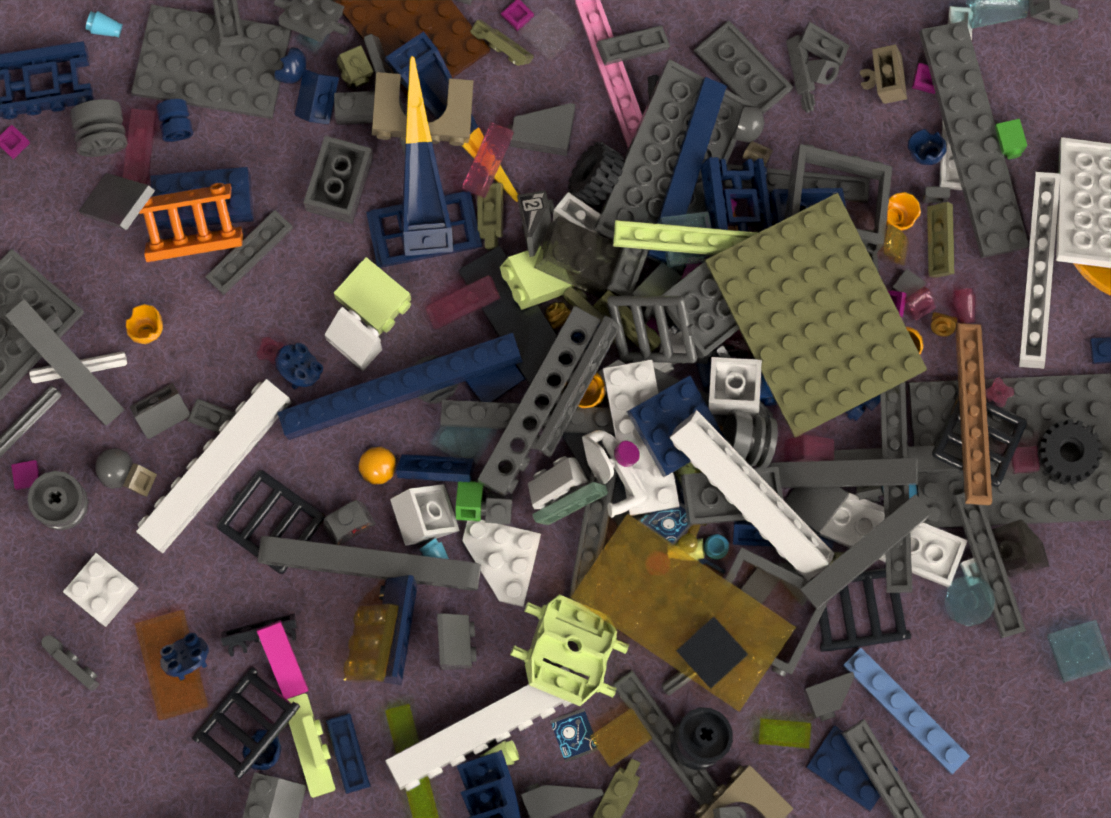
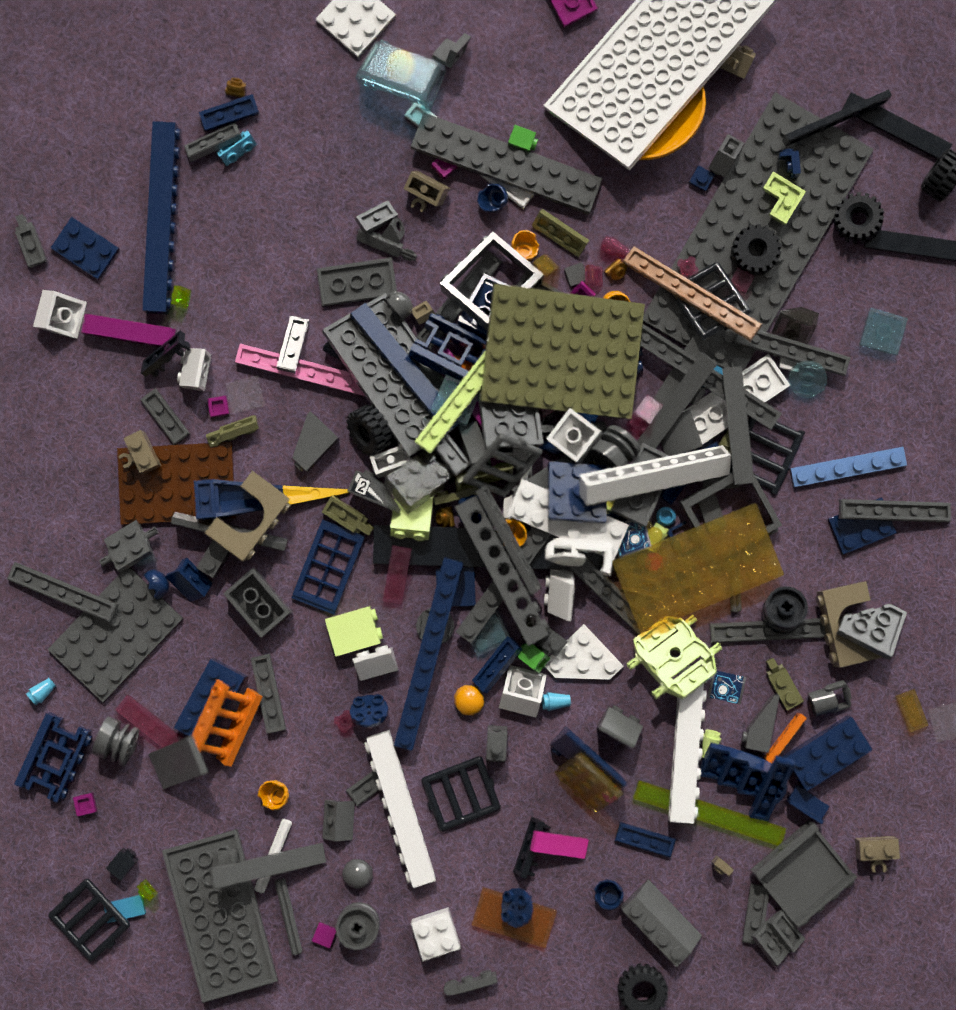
camera: 50 degrees left, 10 degrees up
(139, 480) = (378, 862): dark tan plate -> none
(174, 120) = (141, 685): dark blue wheel -> none
(256, 748) = (568, 907): black bar -> none
(309, 746) = (624, 861): yellowish green bracket -> none
(354, 67) = (186, 541): olive head -> none
(368, 563) = (533, 749): dark grey beam -> none
(424, 209) = (320, 561): dark blue plate -> none
(487, 160) = (310, 495): clear pink tile -> none
(570, 503) = (580, 593): sand green tile -> none
(621, 737) = (749, 659): clear yellow plate -> none
(626, 454) = (575, 537): magenta tile -> none
(712, 652) = (738, 568): black tile -> none
(784, 733) = (812, 553): clear neon green tile -> none
(828, 696) = (808, 509): dark grey slope -> none
(935, 194) = (527, 214): dark grey tile -> none
(1039, 270) = (623, 182): white brick -> none

